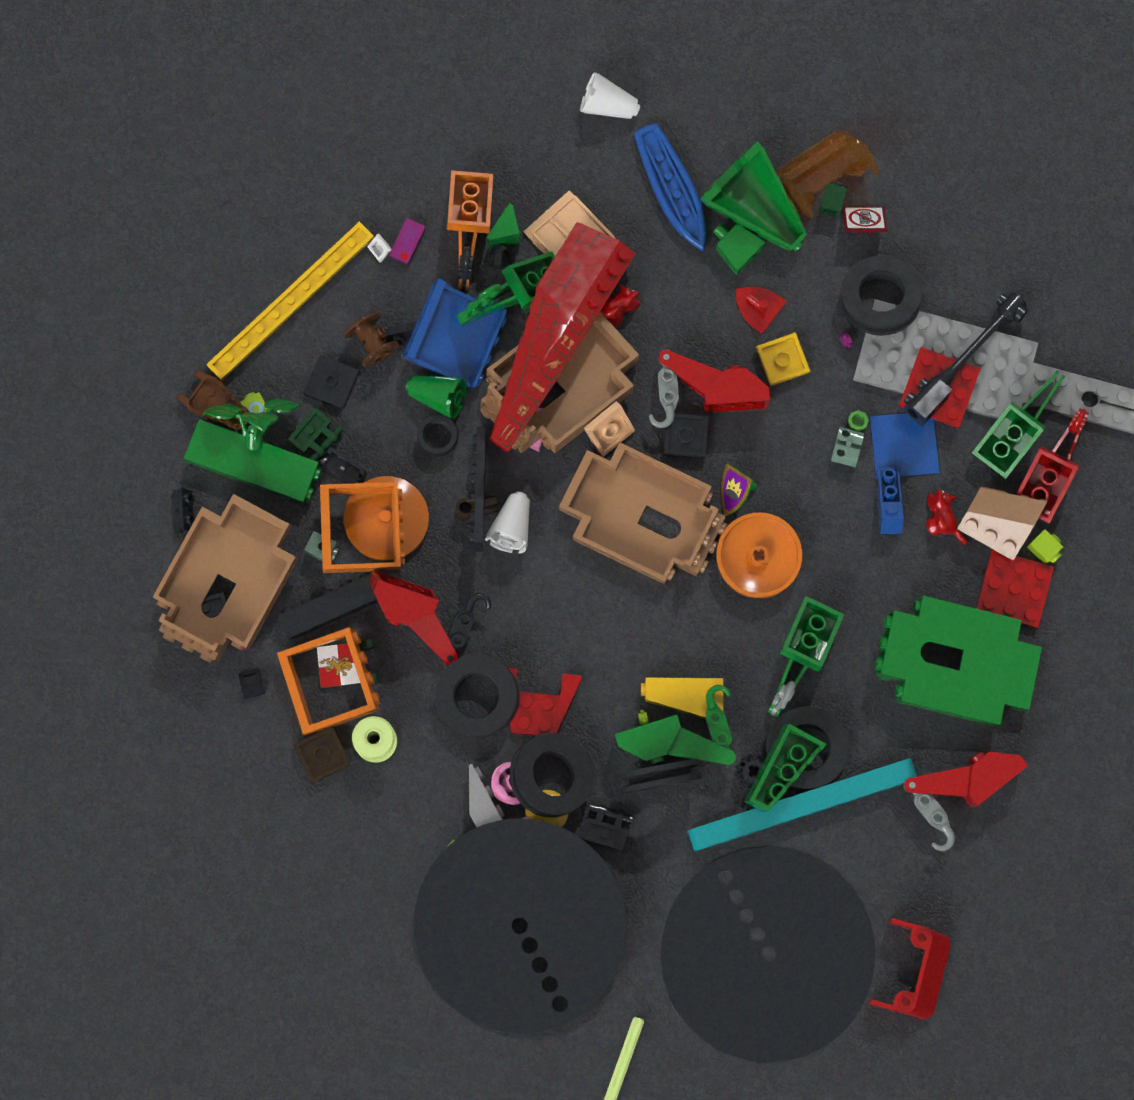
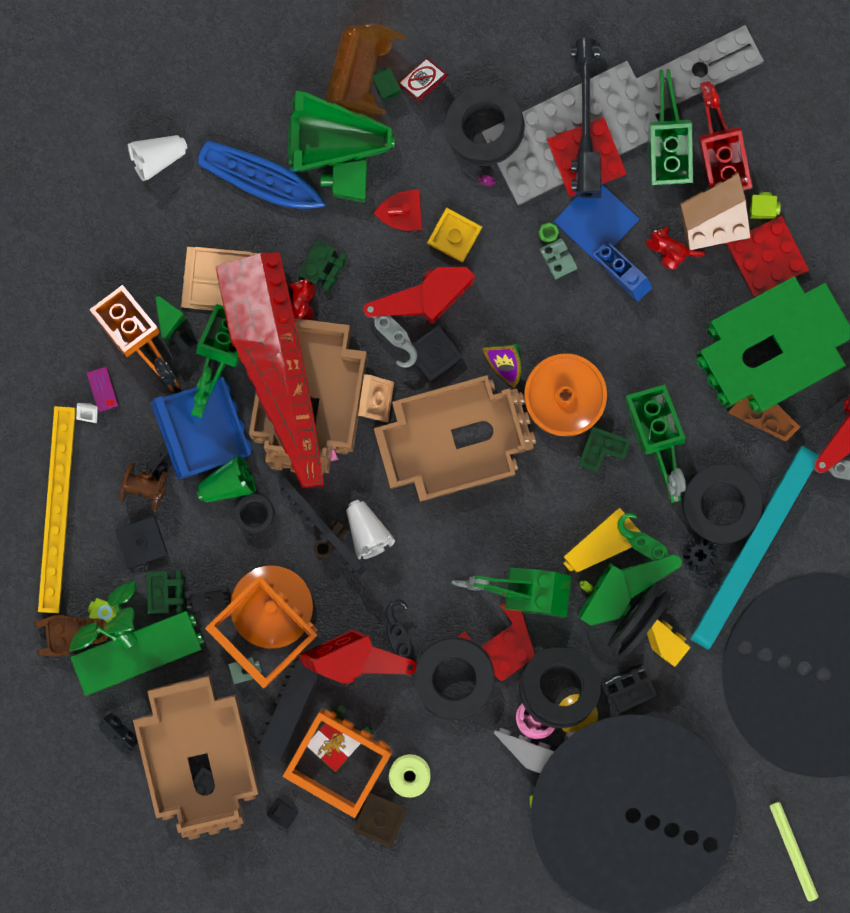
camera: 40 degrees left, 5 degrees up
(594, 679) = (528, 590): none -> green slope
(657, 288) = (316, 263): none -> dark green plate
(665, 813) = (666, 643): none -> yellow slope
(753, 617) = (601, 443): none -> dark green plate
(782, 766) = (720, 534): green wedge -> none
(904, 718) = (773, 420): none -> dark orange wing

